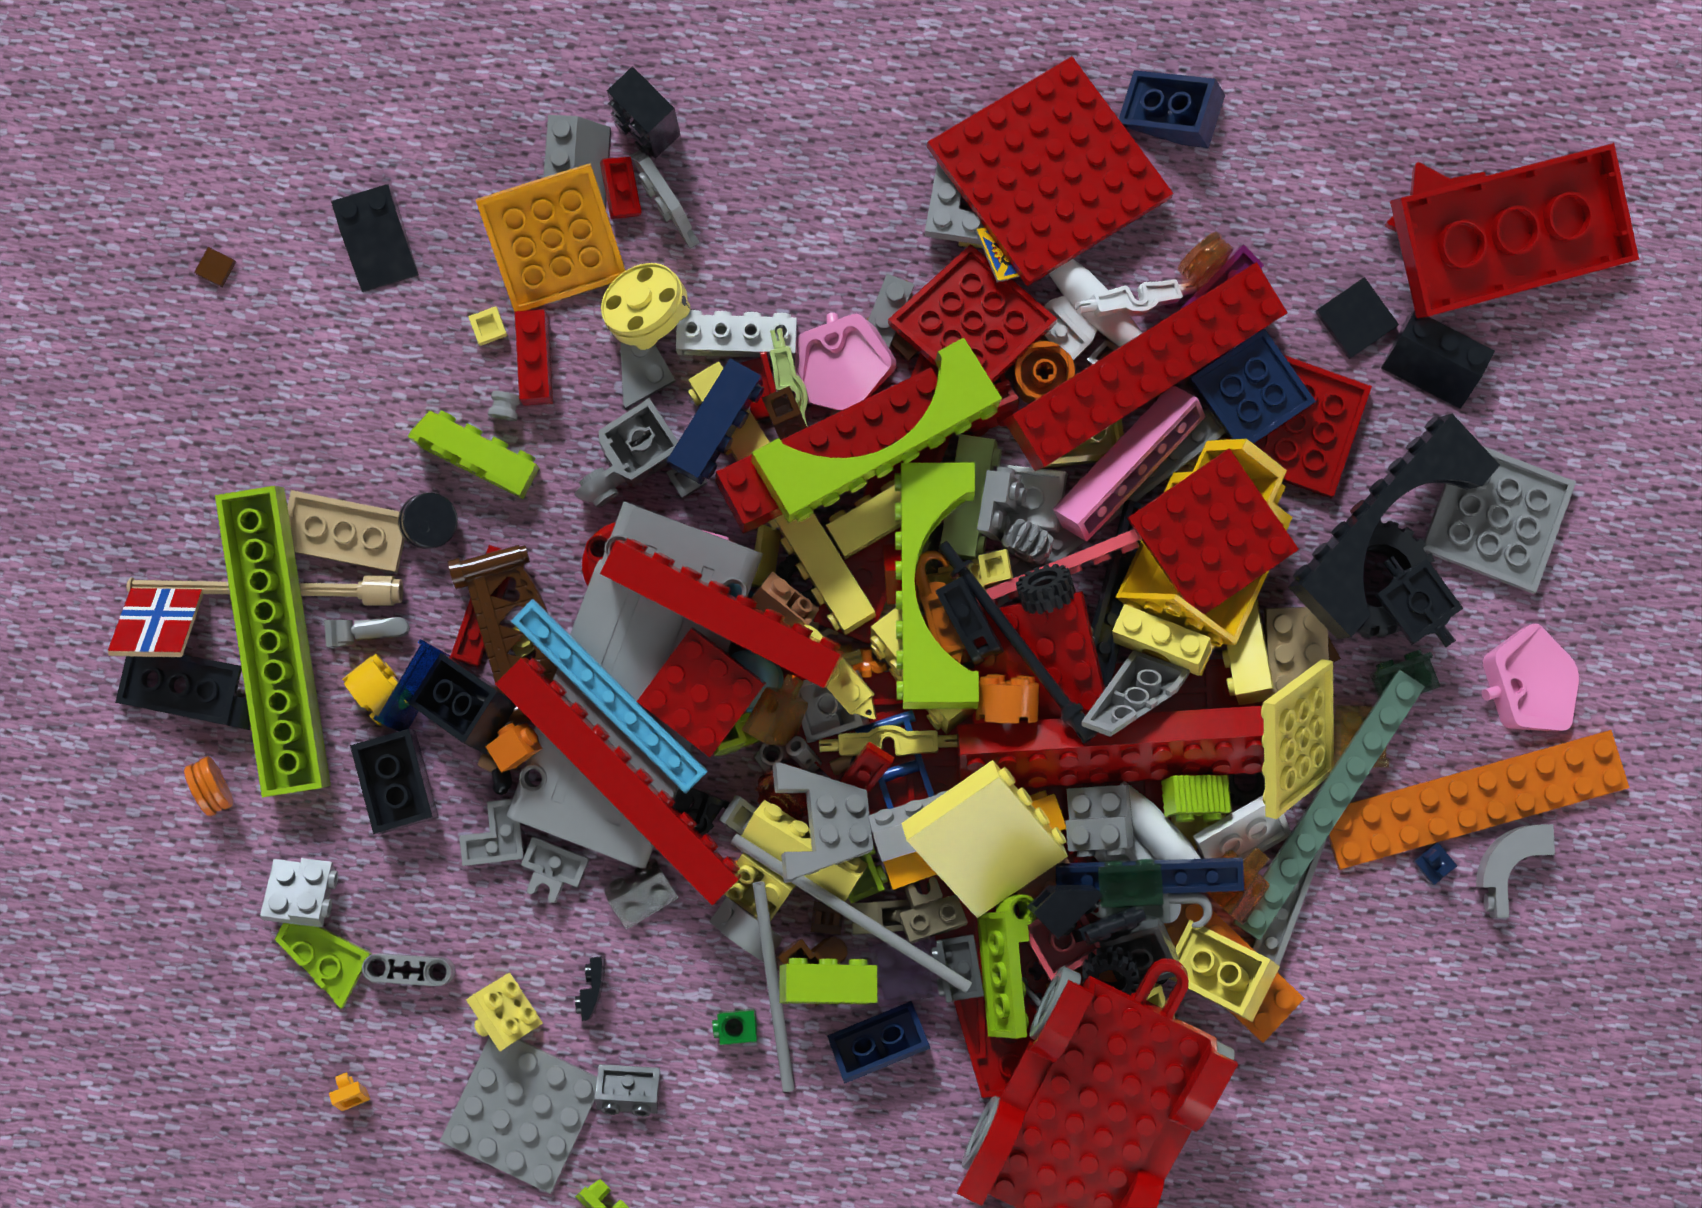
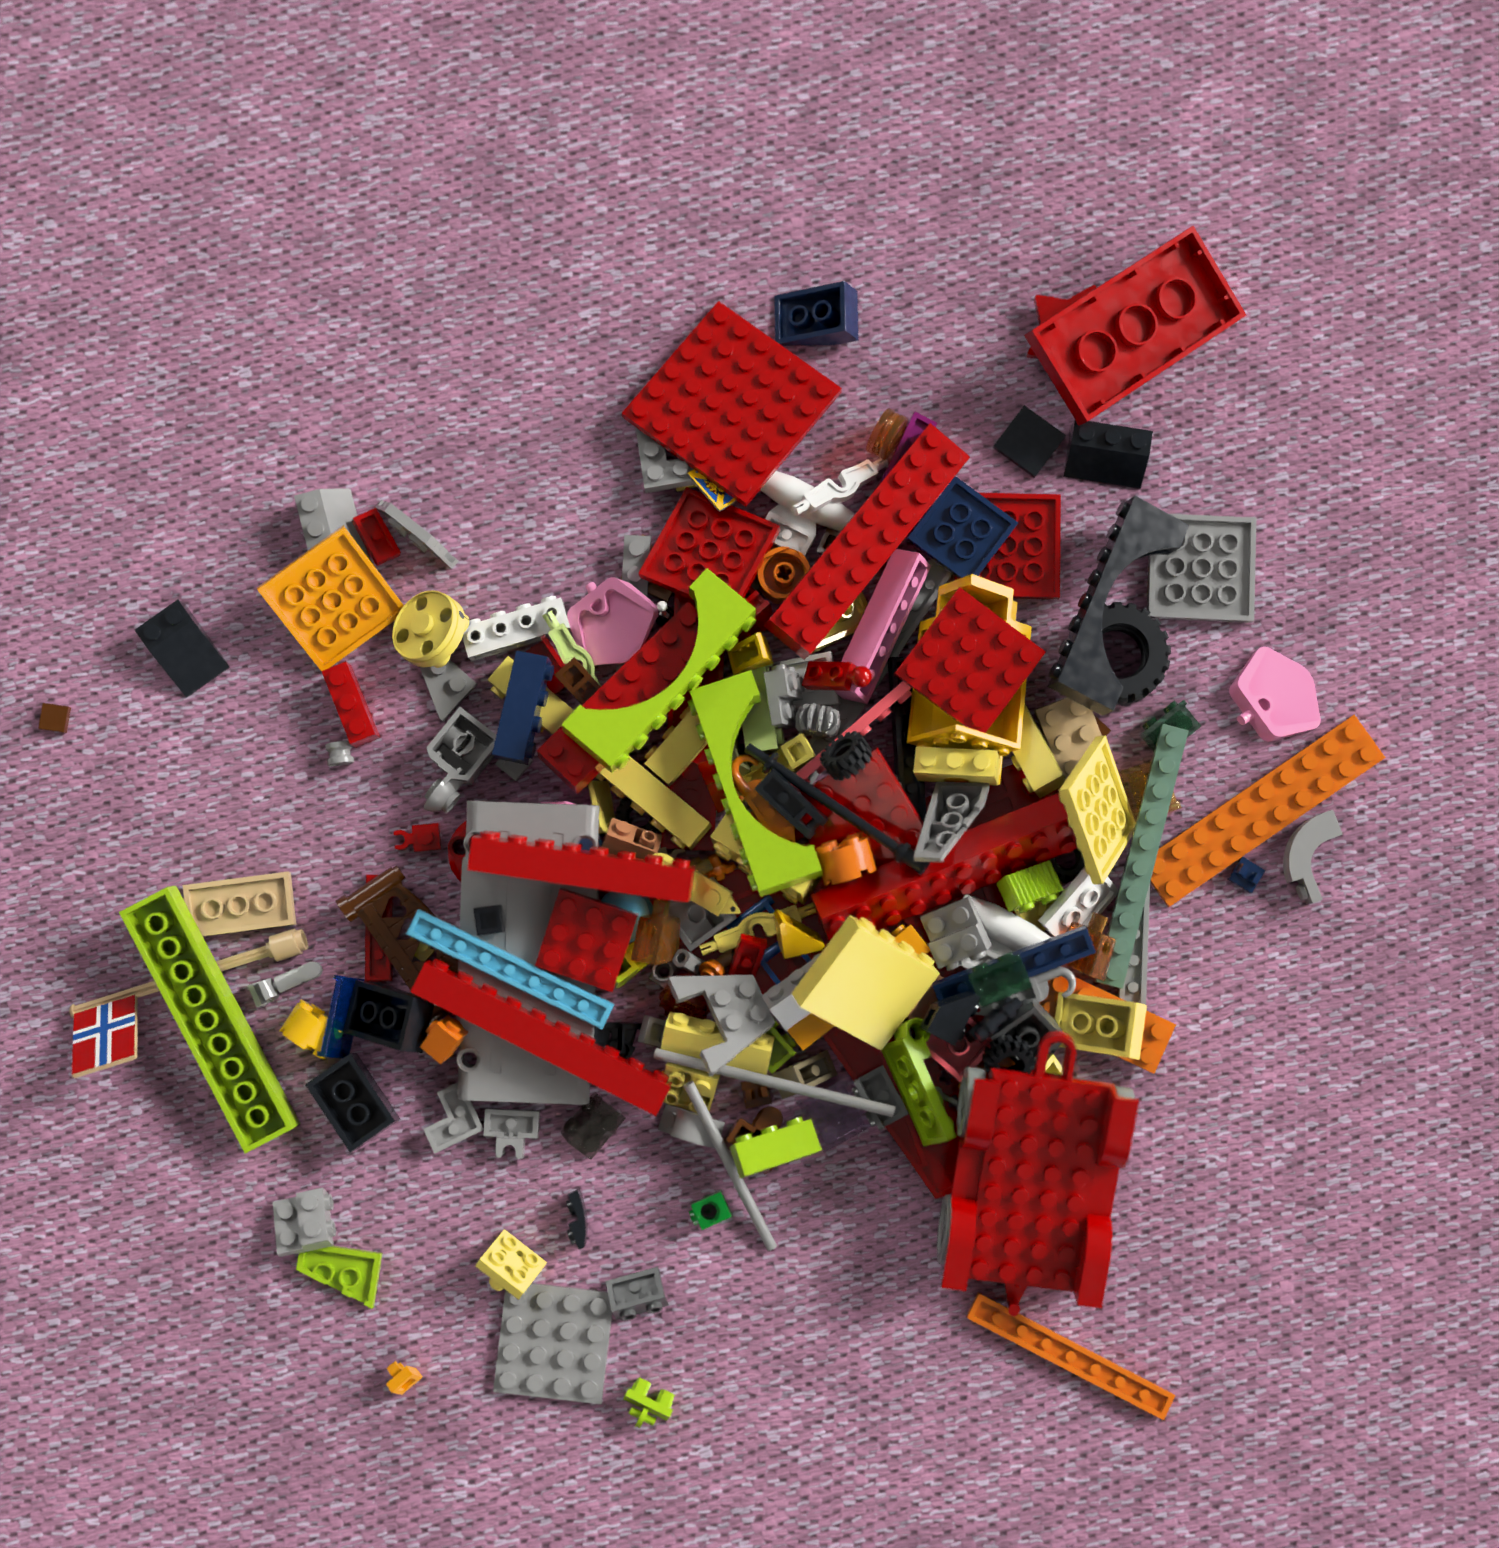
camera: 15 degrees left, 0 degrees up
(207, 694) = (169, 1084): black hinge -> none
(208, 786) = (196, 1159): orange head -> none
(401, 977) = (414, 1265): light grey beam -> none
(427, 520) = (307, 872): black head -> none
(475, 453) = (328, 802): lime wedge -> none
(488, 326) = (303, 690): light yellow plate -> none
(501, 780) = (444, 1071): black arm -> none
(563, 526) = (423, 838): none -> red plate
(604, 636) = (489, 920): none -> black tile
(643, 113) = (374, 468): black brick -> none
(825, 768) = (711, 968): none -> orange plate
(878, 1042) = (833, 1182): dark blue slope -> none
(901, 372) = (665, 612): none -> hinge
(925, 765) = (795, 937): none -> yellow slope
(930, 913) = (841, 1059): dark tan plate -> none
(979, 445) = (750, 654): none -> yellow slope
(1062, 499) = (835, 676): none -> red plate
(1419, 601) = (1160, 661): black plate -> none

